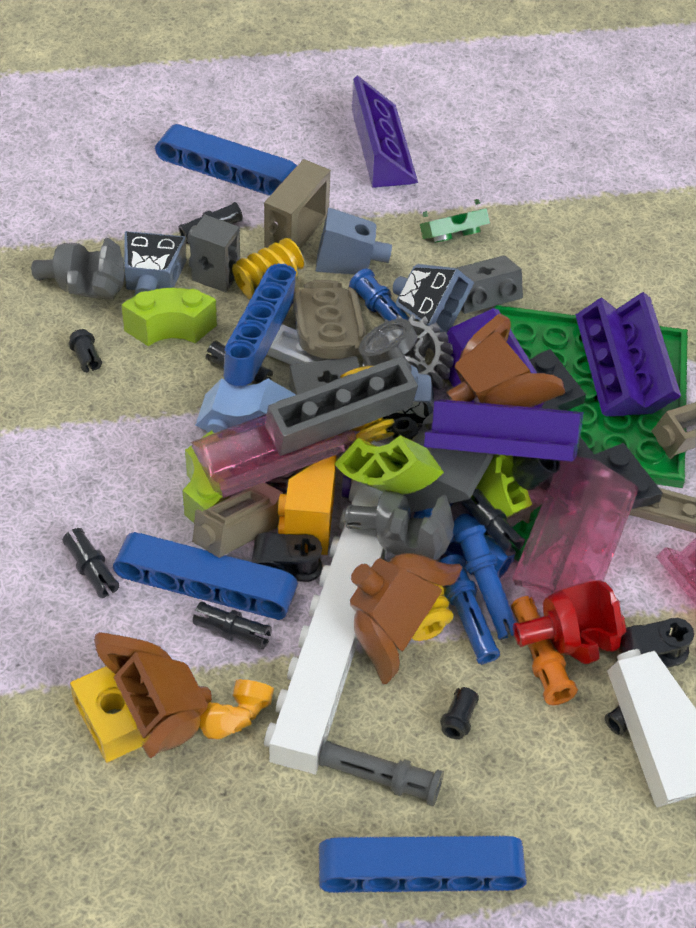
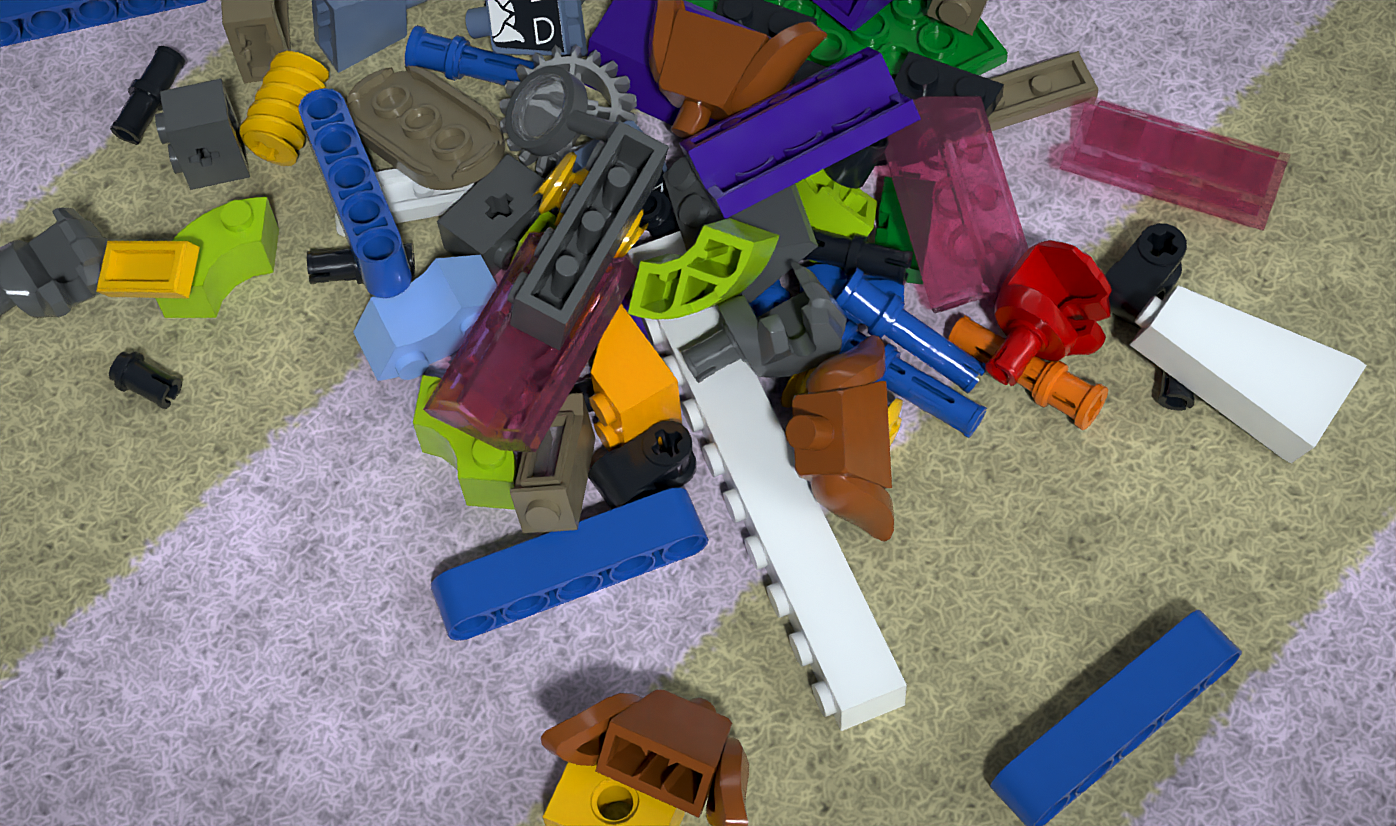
camera: 30 degrees left, 10 degrees up
(90, 562) = (414, 649): black pin -> none
(126, 294) = (148, 269): none -> yellow tile
(153, 260) = (122, 195): torso -> none
(224, 719) = (757, 718): light orange arm -> none
(232, 625) = (656, 600): black pin -> none
(400, 776) = (1005, 637): dark grey pin -> none
(459, 713) = (1008, 524): black pin -> none

